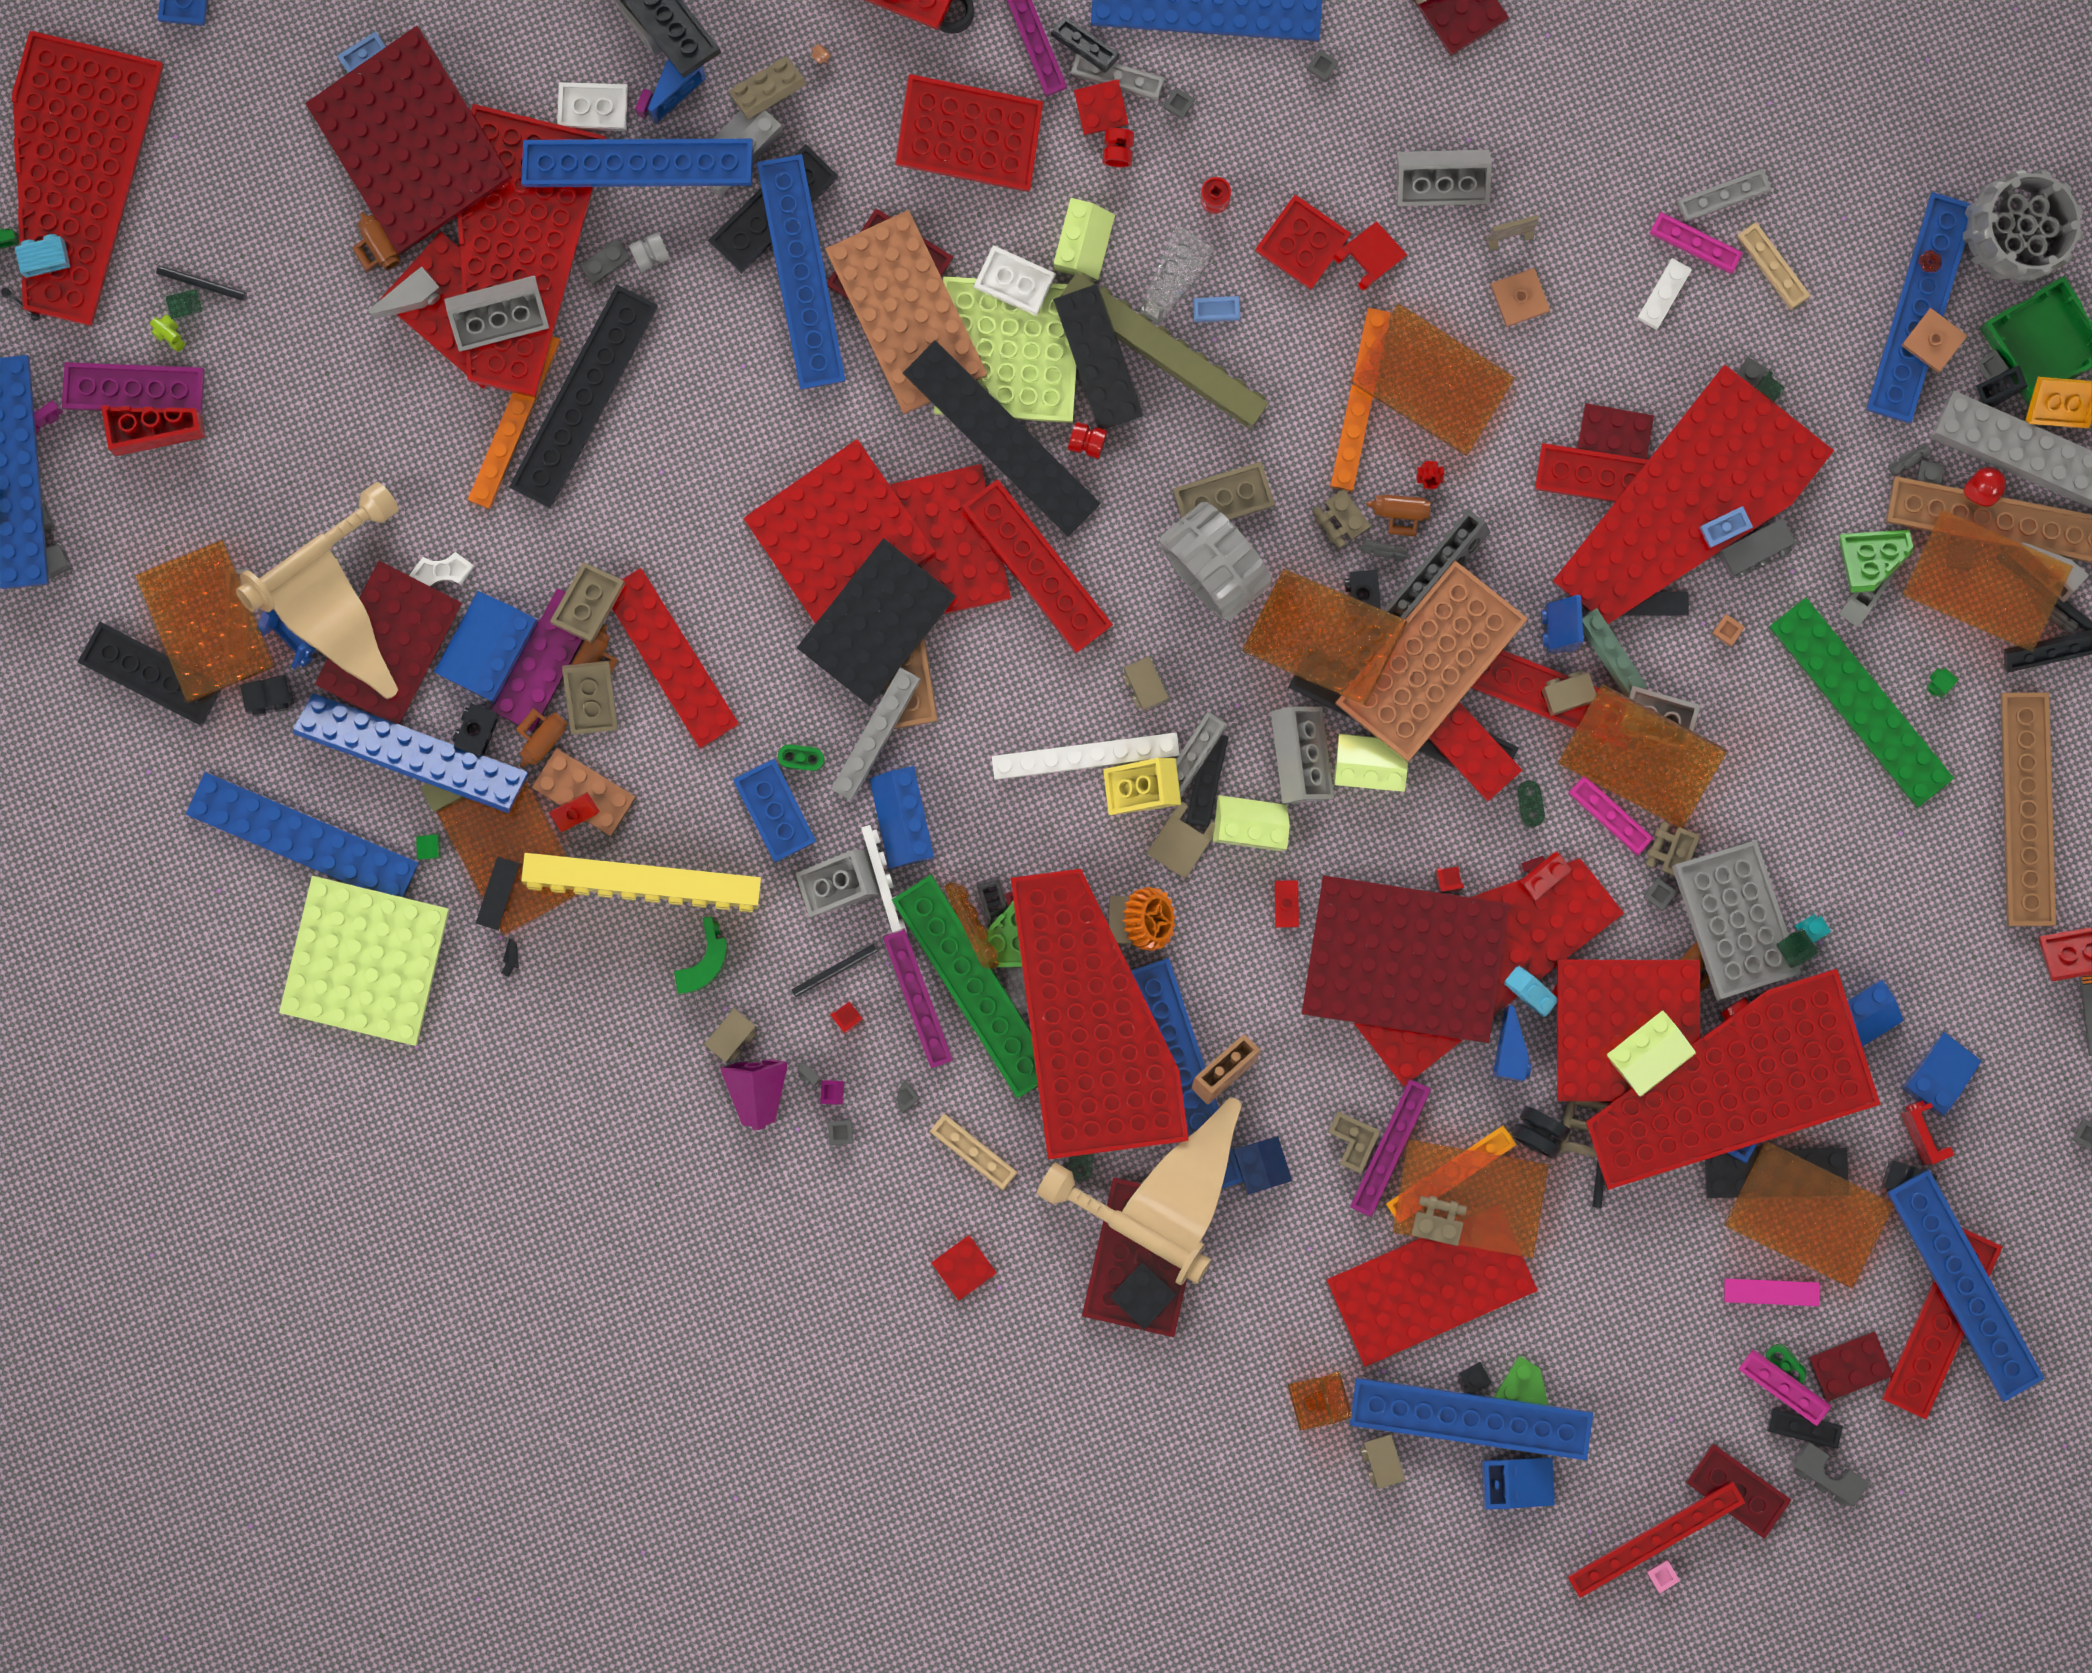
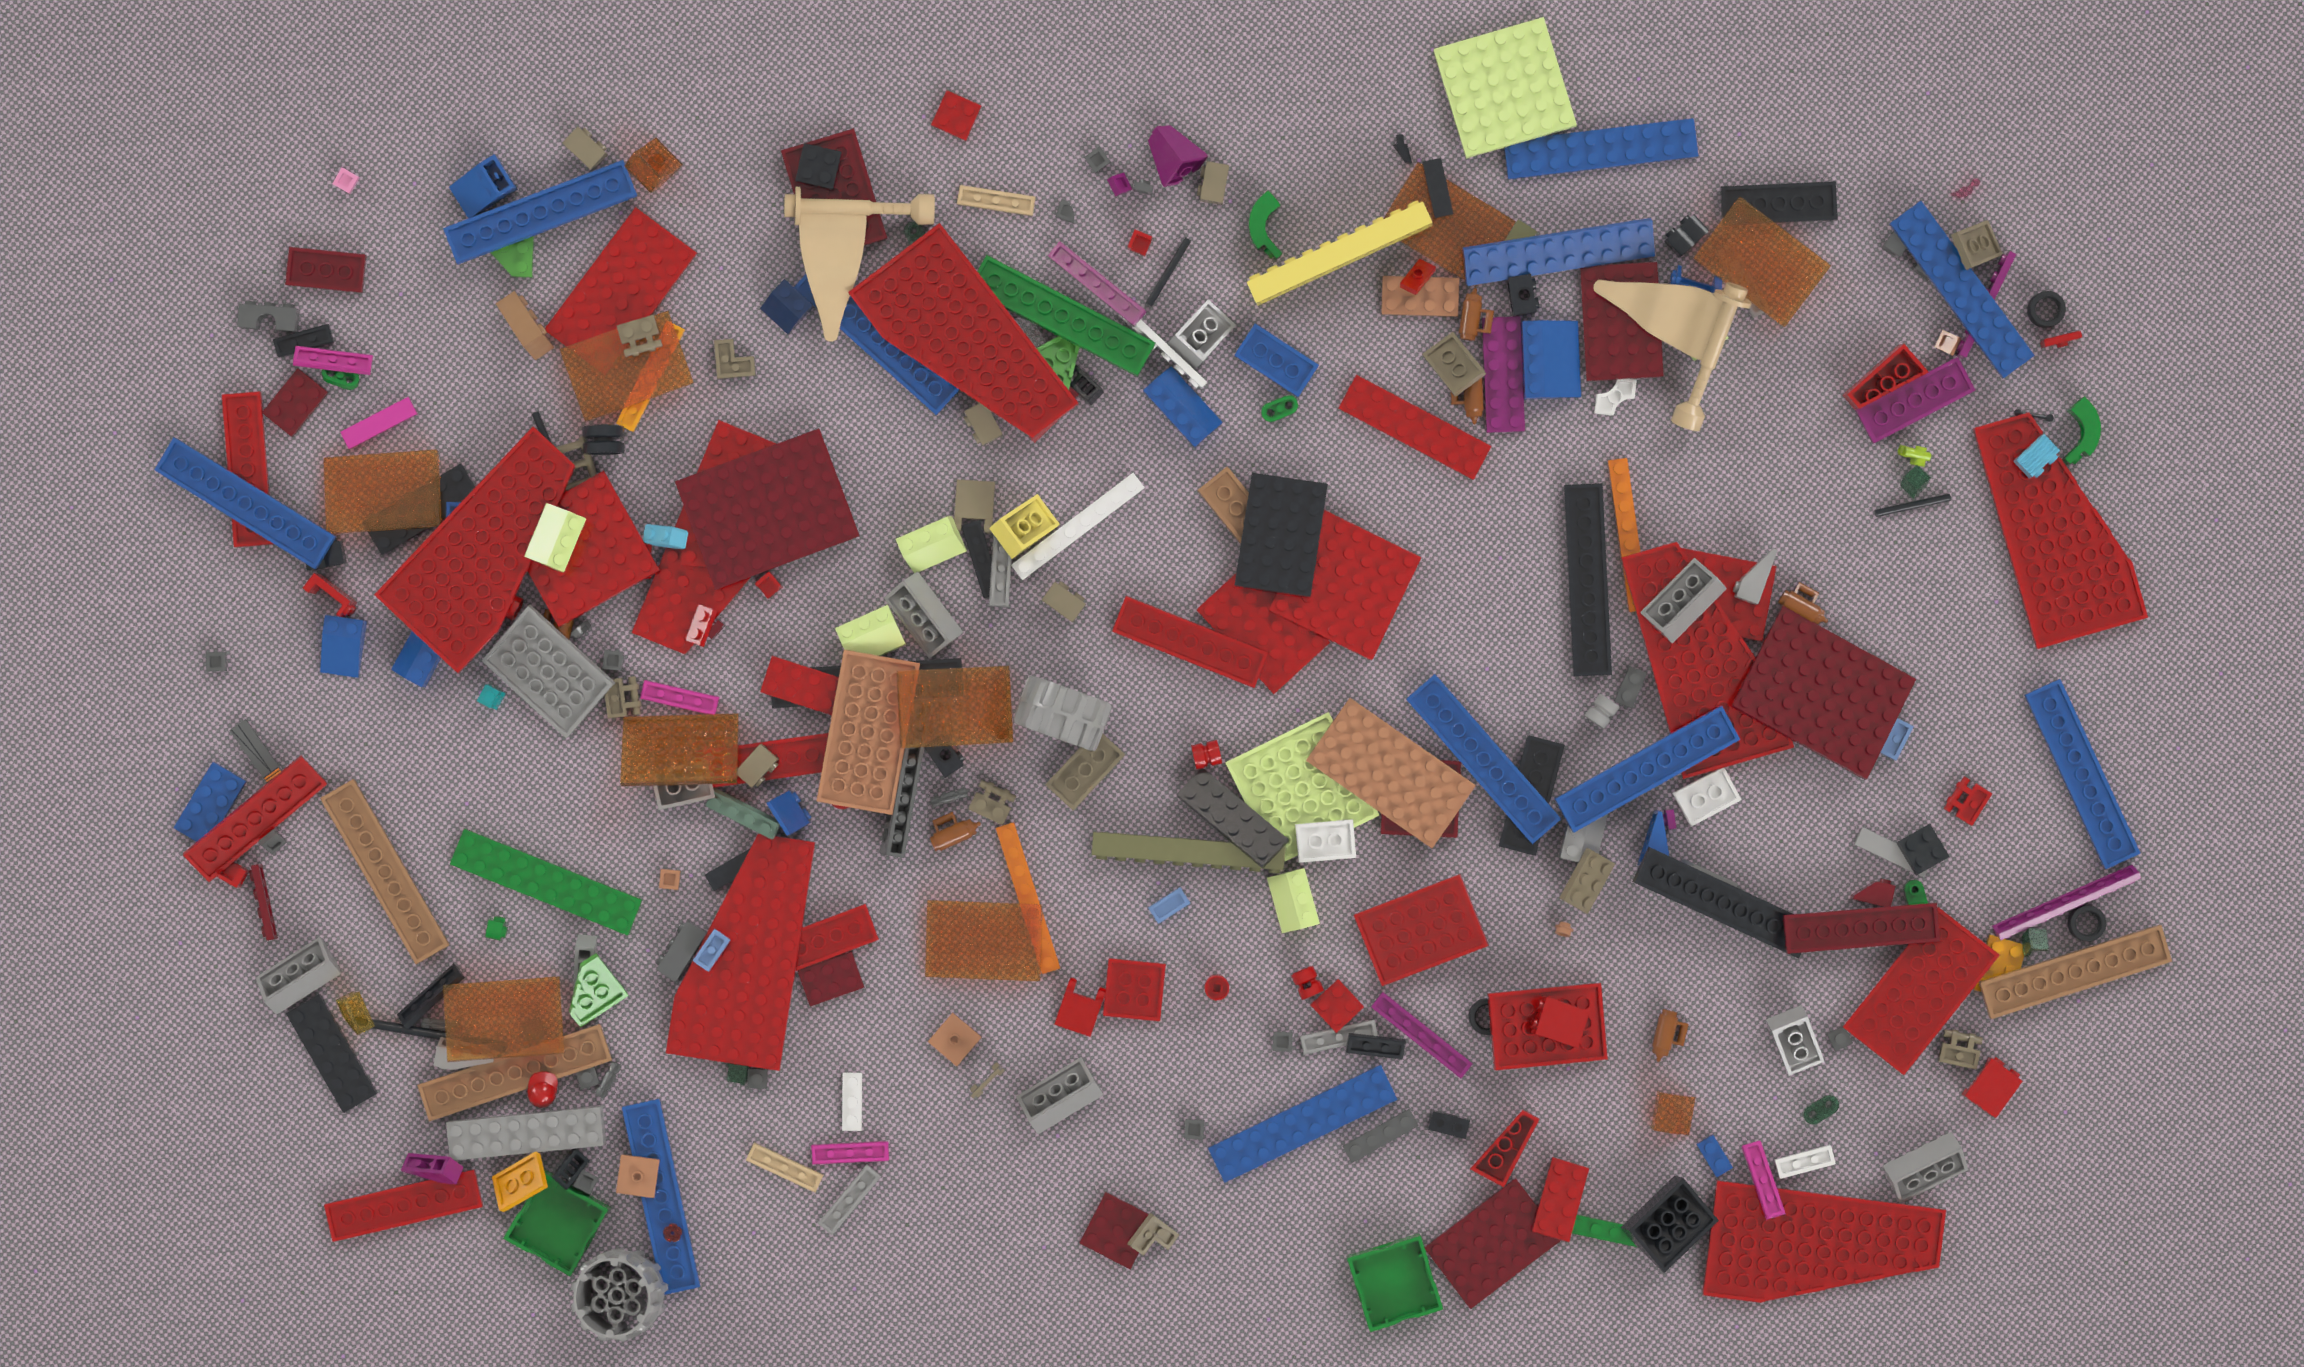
camera: 145 degrees right, 5 degrees up
(63, 428) = (1947, 342): none -> plate
(428, 847) = (1507, 194): green slope -> none
(587, 602) = (1495, 430): dark tan plate -> none
(876, 734) = (1235, 455): light grey plate -> none
(975, 931) = (1087, 356): clear orange plate -> none
(1001, 438) = (1268, 719): black plate -> none
(1149, 918) = (964, 433): orange gear -> none
(1178, 270) = (1211, 917): clear wedge -> none
(1225, 1069) = (850, 357): medium nougat brick -> none
(1286, 904) = (874, 502): red plate -> none
(1390, 1148) = (703, 370): magenta plate -> none
(1430, 474) = (946, 870): red gear -> none
(1475, 1377) = (554, 244): black plate -> none
(1511, 1054) = (653, 481): blue slope -> none
(1530, 803) = (741, 673): clear green plate -> none
(1555, 1307) = (524, 325): none -> medium nougat wedge
(1656, 1539) = (364, 202): red plate -> none
(1676, 946) = (581, 629): none -> dark grey tile
(1797, 948) = (494, 675): clear green panel -> none

